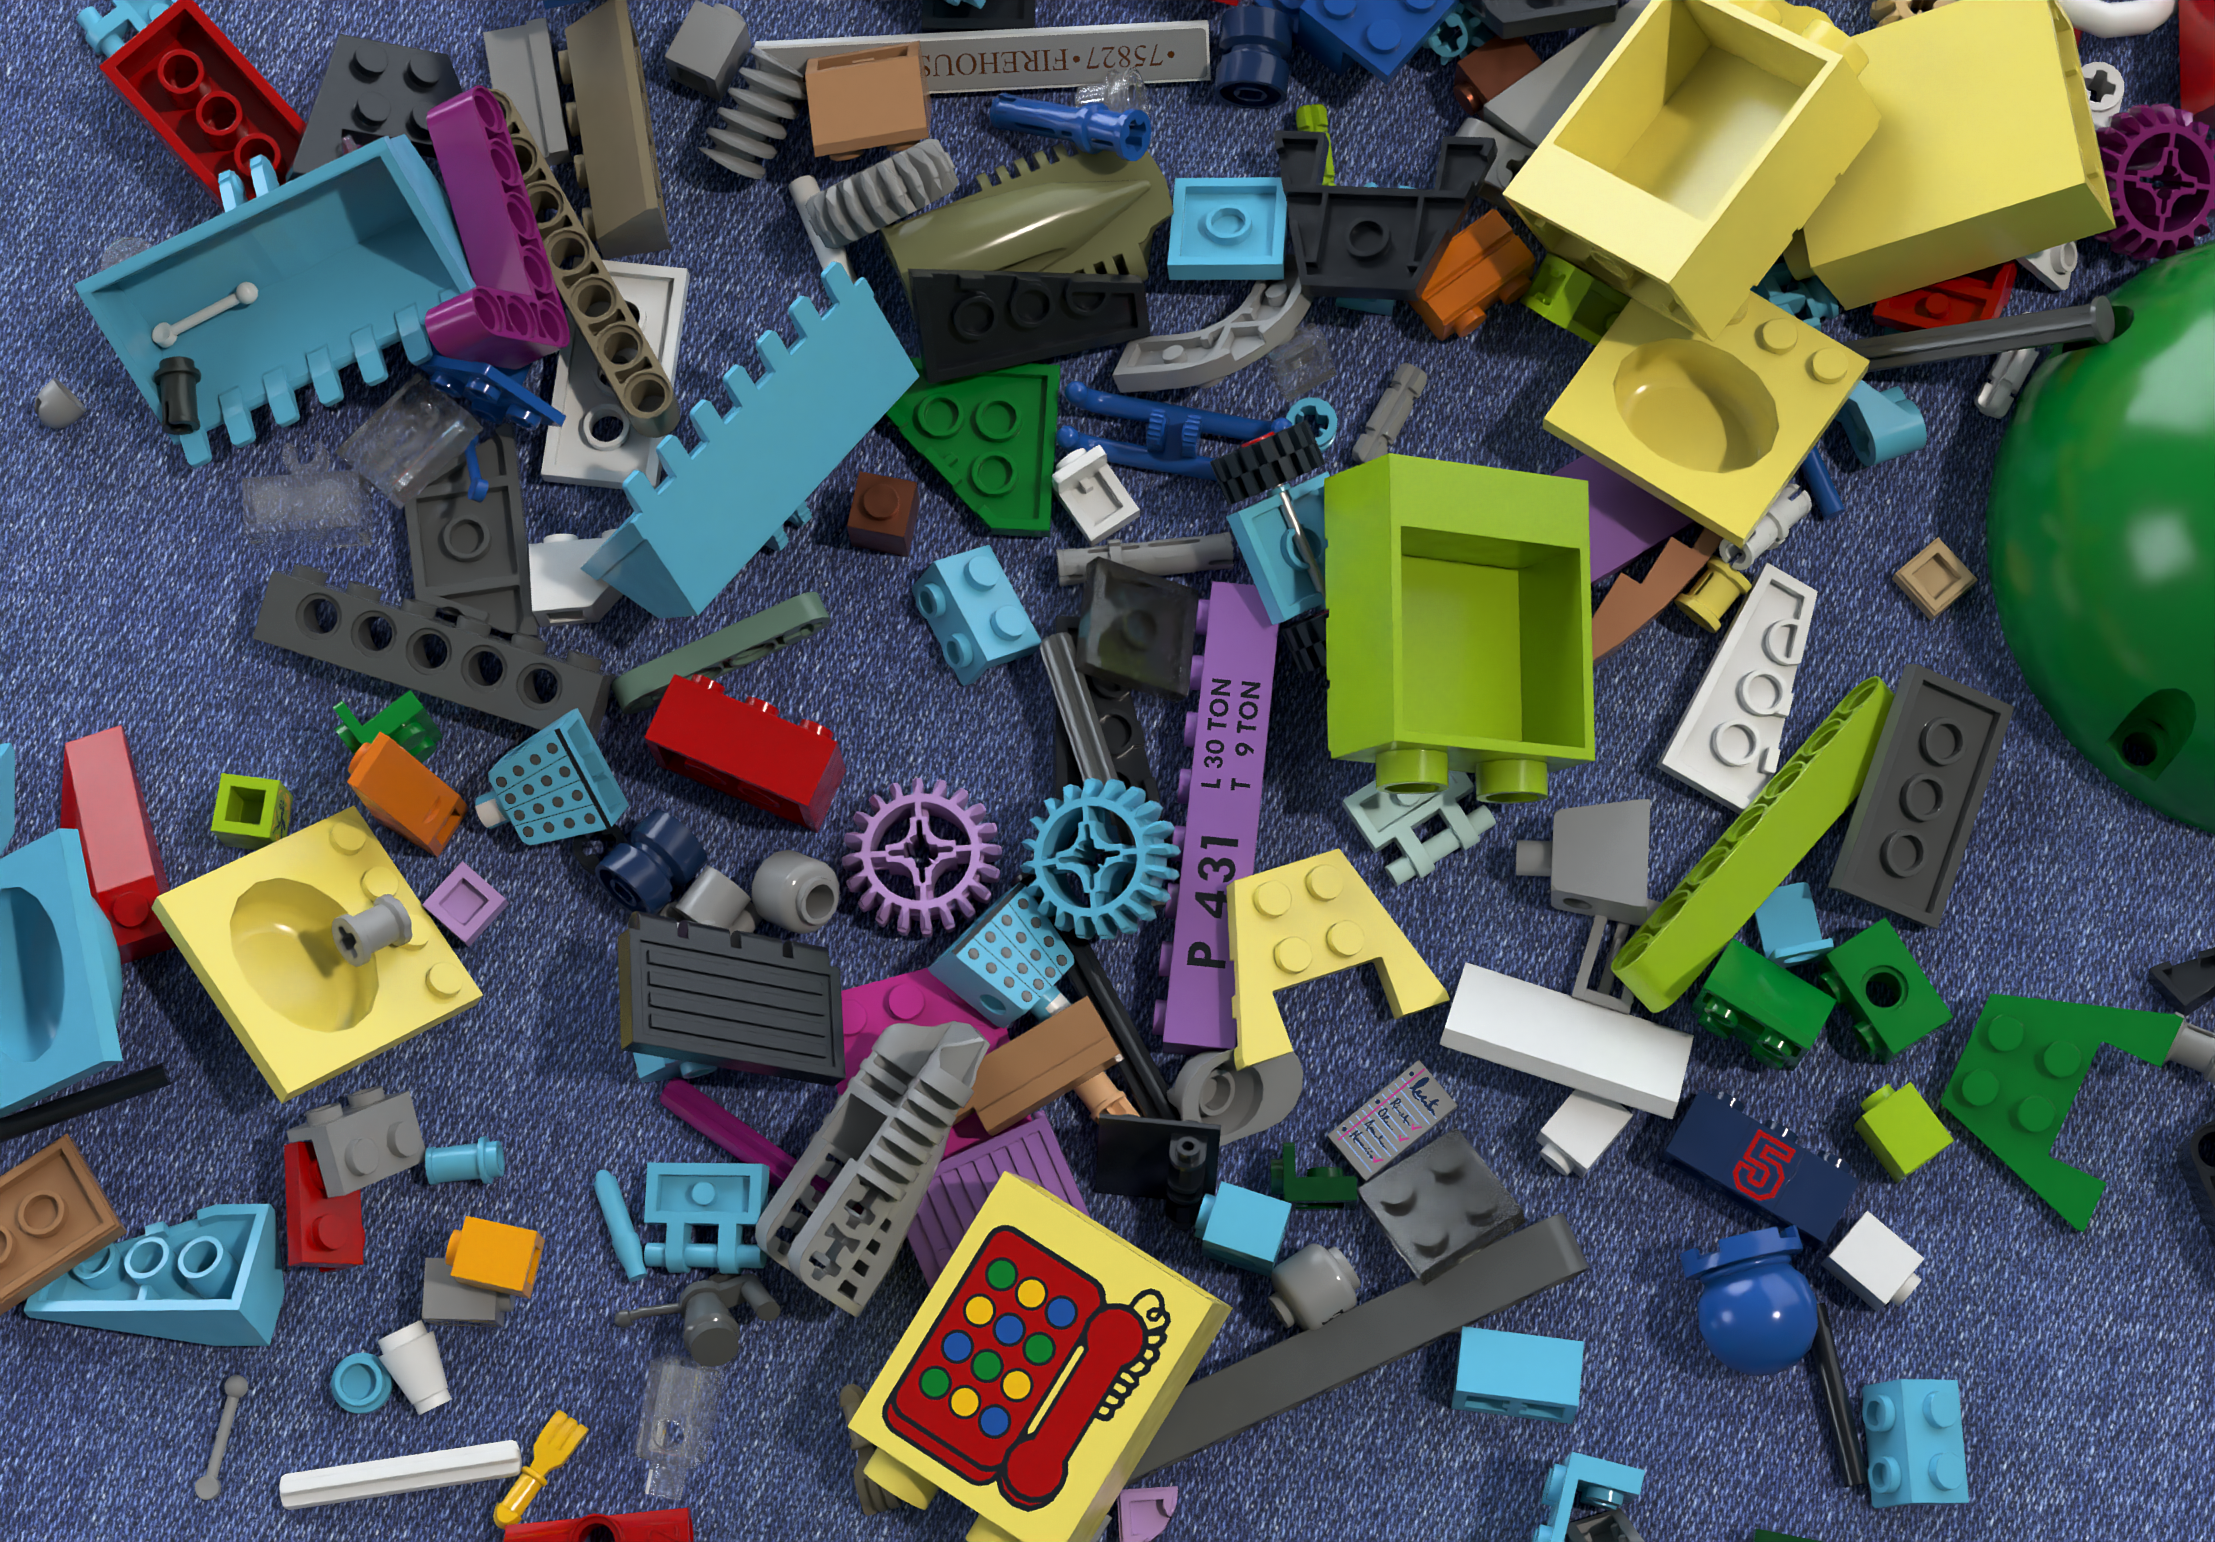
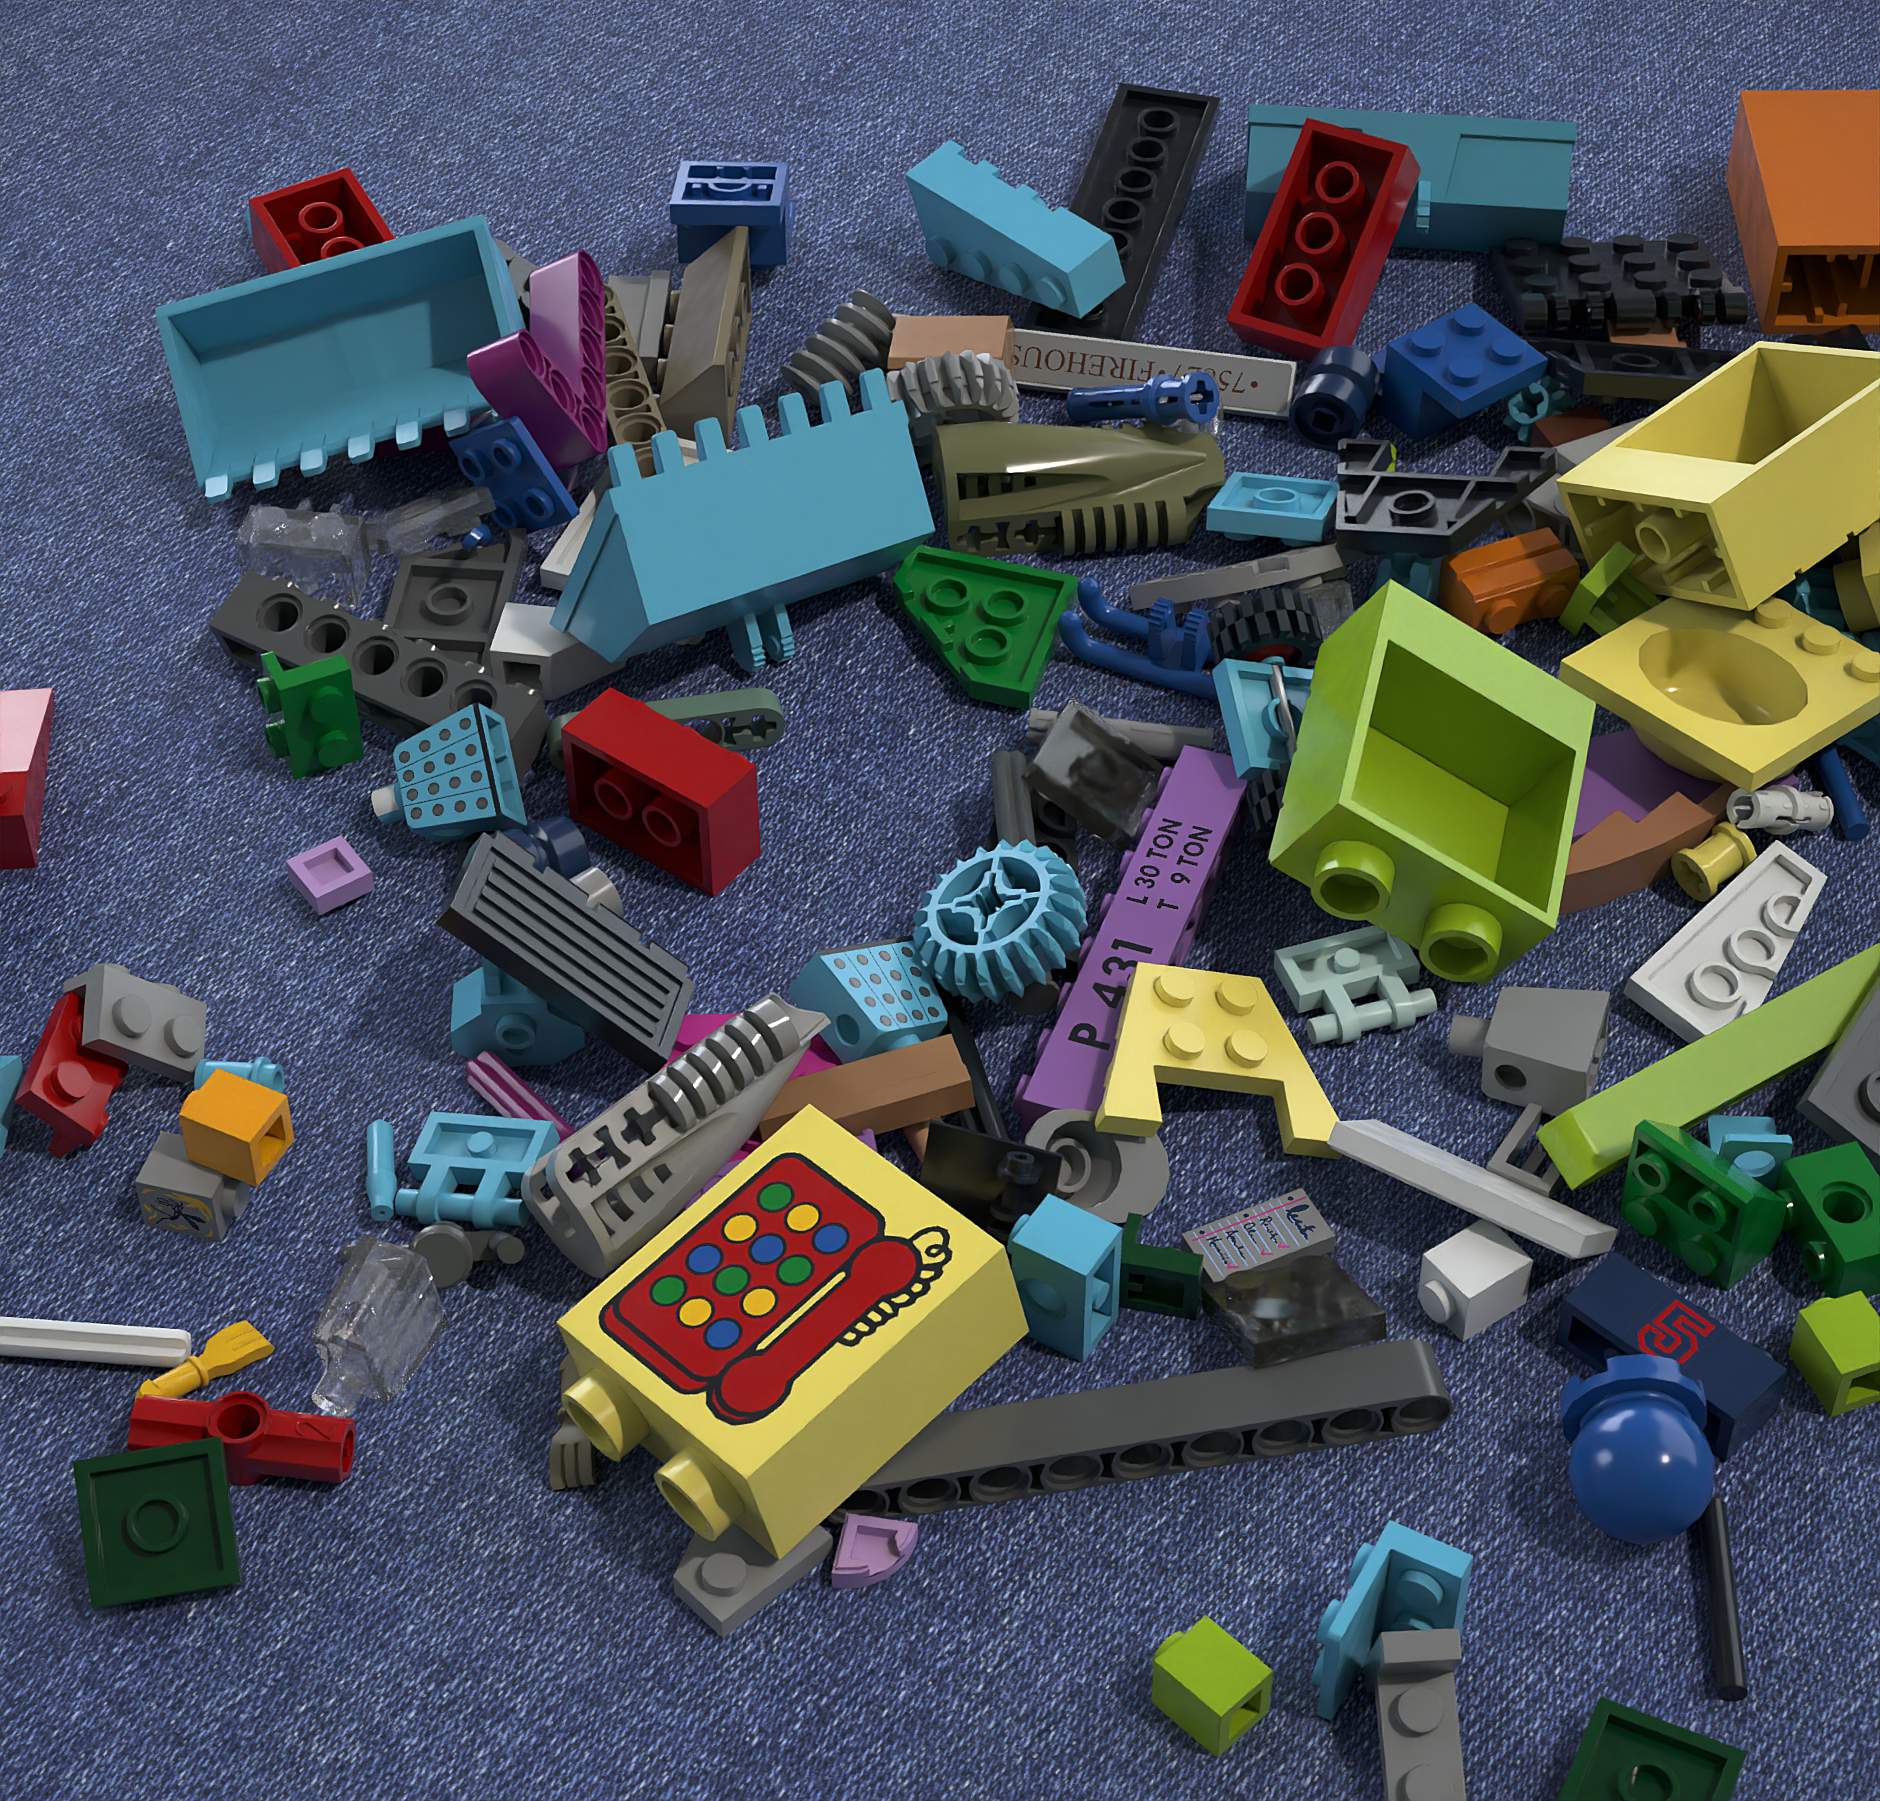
camera: 10 degrees right, 30 degrees down
(58, 405) = (103, 454): light grey hinge -> none
(166, 334) = (313, 387): white hinge -> none
(178, 394) = (221, 431): pearl dark grey pin -> none
(251, 811) = (147, 755): lime brick -> none
(271, 963) = (161, 860): light yellow piece -> none
(361, 1383) = (46, 1249): medium azure plate -> none
(372, 930) = (224, 841): light grey bush -> none
(405, 794) = (303, 751): orange slope -> none
(416, 1366) = (111, 1240): white cone -> none
(708, 49) = (804, 308): light grey brick -> none
(795, 891) = (674, 913): light grey head -> none
(883, 514) = (866, 652): copper brick -> none
(895, 857) = (805, 907): lavender gear -> none
(974, 613) = (932, 744): medium azure bracket -> none
(1011, 318) = (1035, 517): black wing -> none
(1093, 494) = (1079, 669): white bracket -> none
(1313, 1287) = (1126, 1351): light grey head -> none
(1518, 1375) = (1339, 1490): medium azure hinge -> none
(1874, 1263) = (1789, 1467): white brick -> none
(1915, 1443) = (1812, 1658): medium azure bracket -> none

